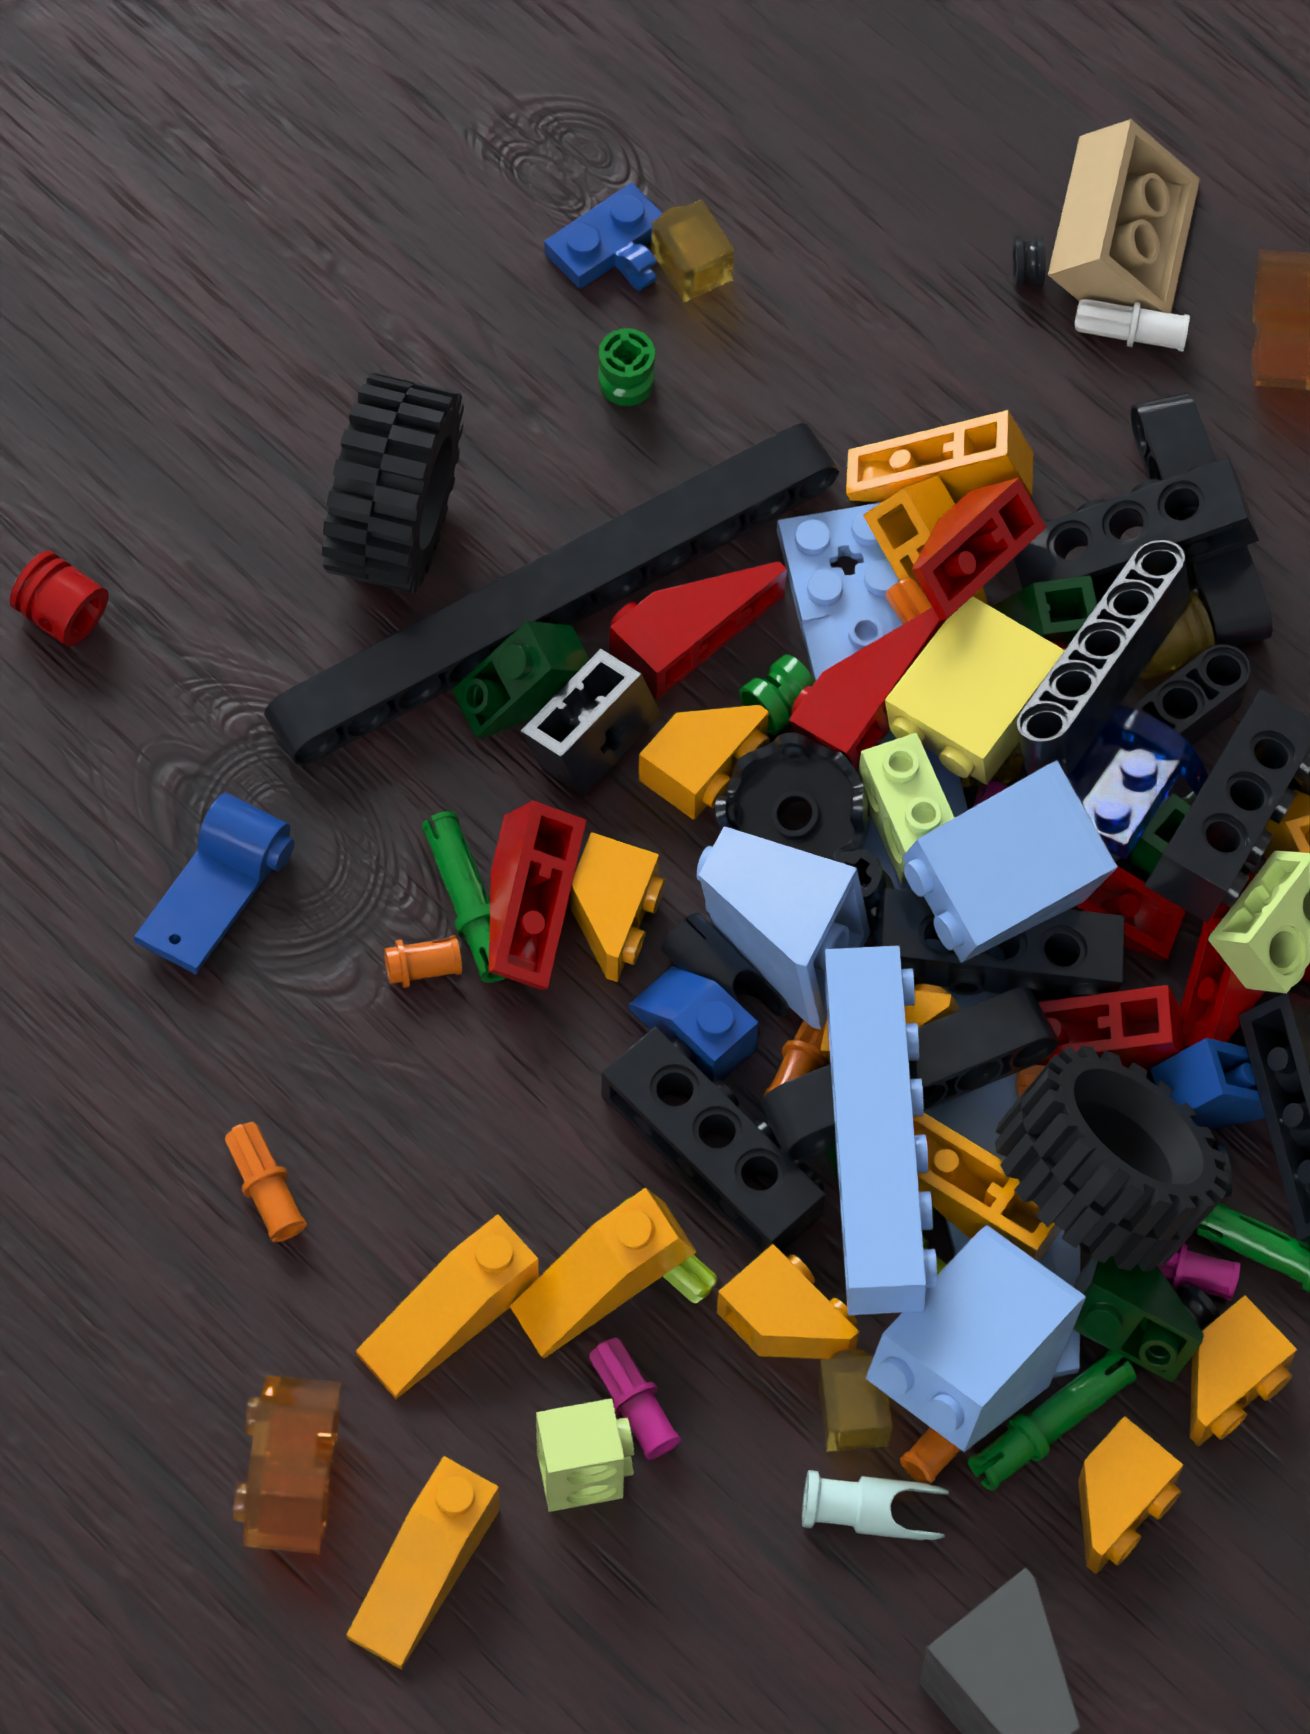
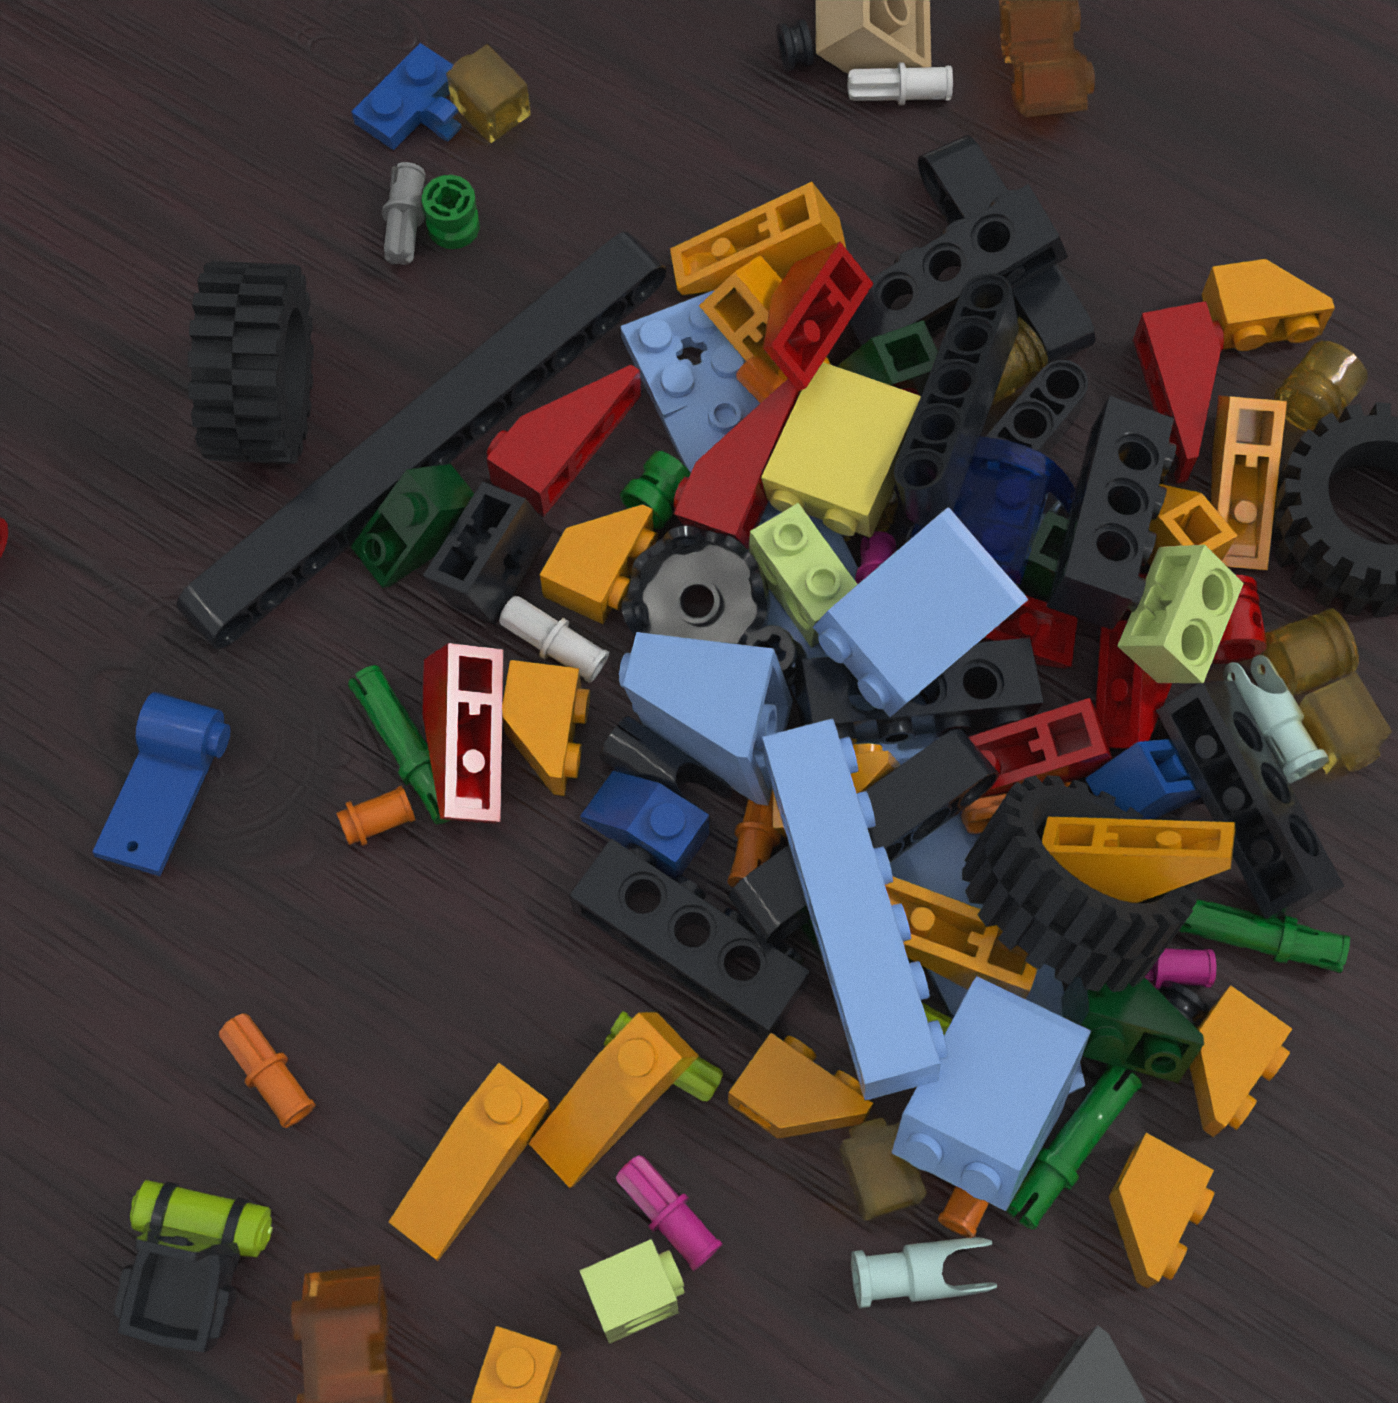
camera: 10 degrees left, 5 degrees up
(153, 1342) = (185, 1264): none -> black piece
(576, 357) = (403, 212): none -> light grey axle
(640, 821) = (553, 638): none -> white axle
(1171, 1139) = (1139, 856): none -> light orange slope

